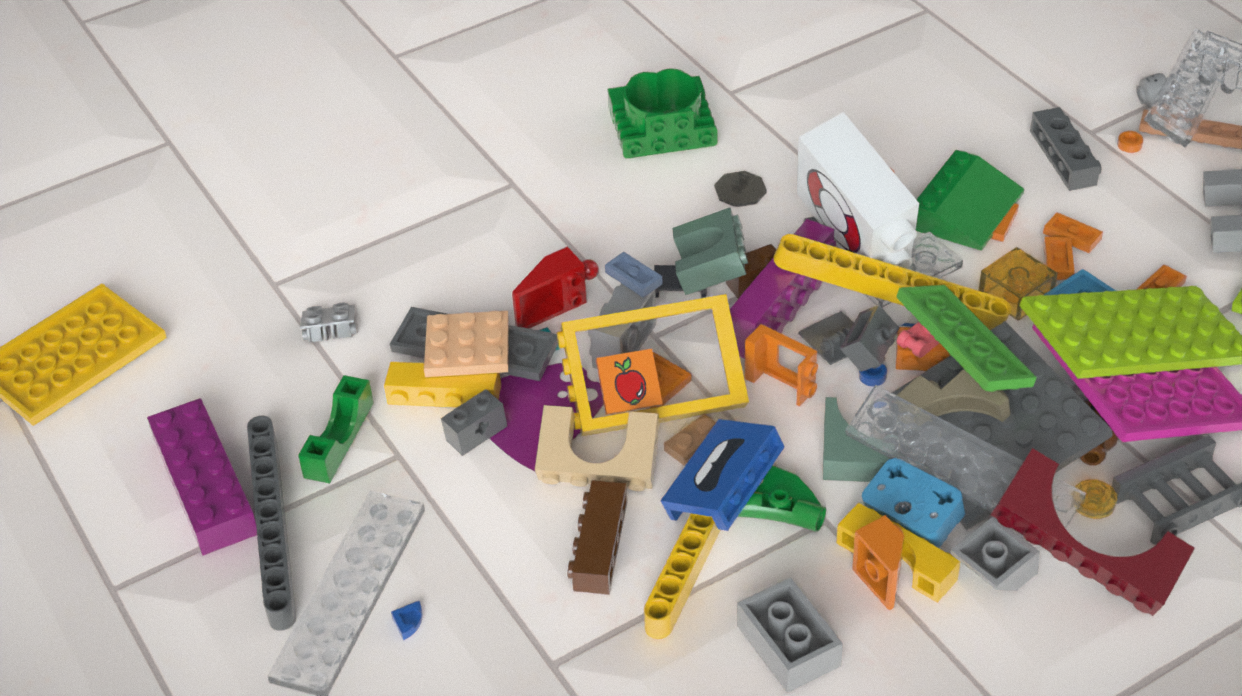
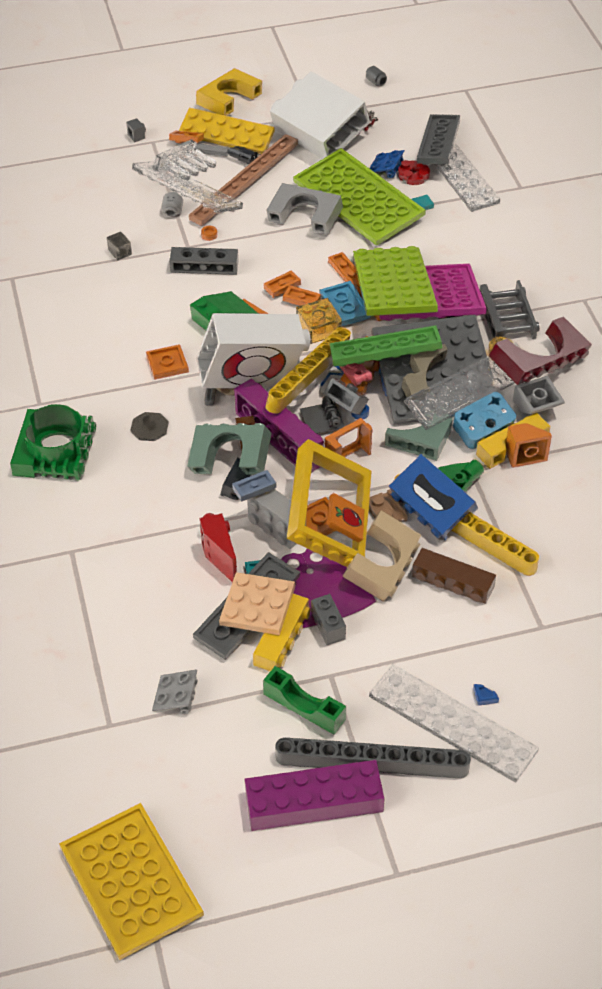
camera: 75 degrees left, 5 degrees up
(789, 634) = (564, 503): light grey brick -> none
(1038, 69) = (119, 245): none -> clear smoke brick

